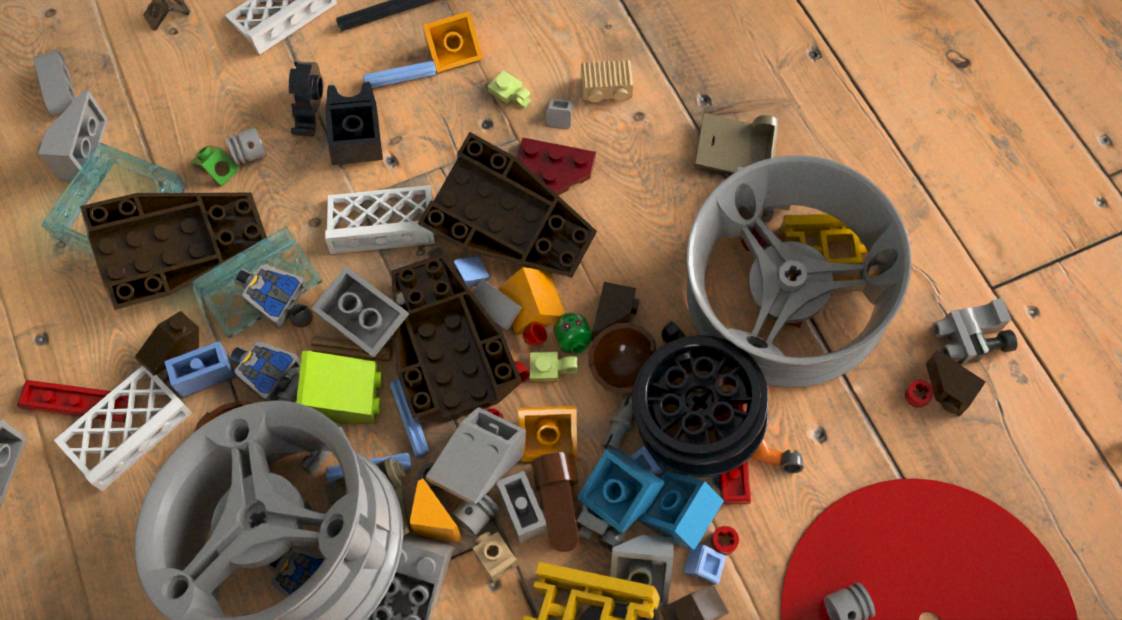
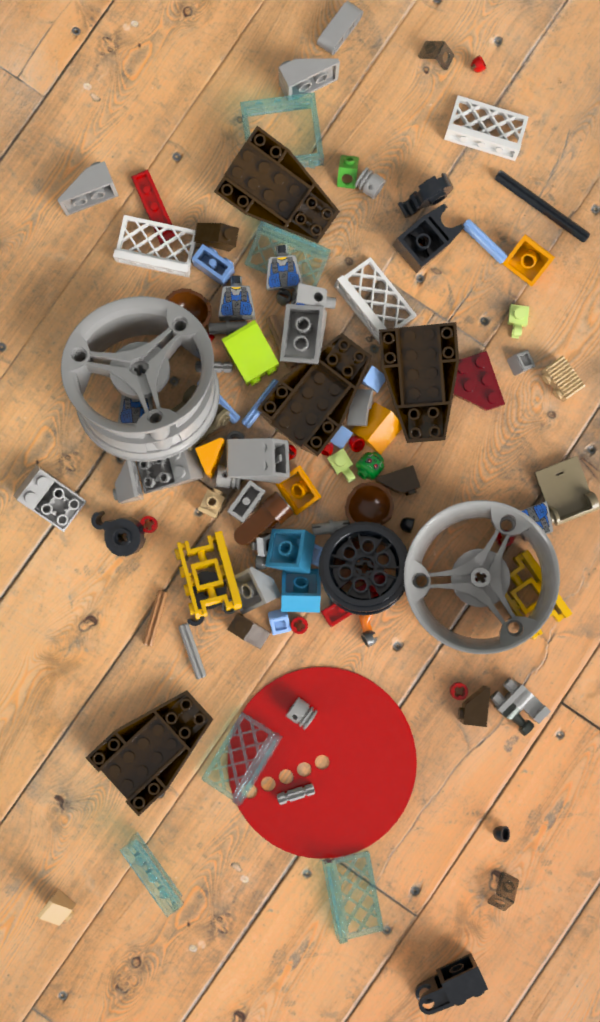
camera: 50 degrees right, 20 degrees up
(319, 277) = (312, 295): none -> light grey torso
(517, 345) = (341, 437): none -> light blue slope

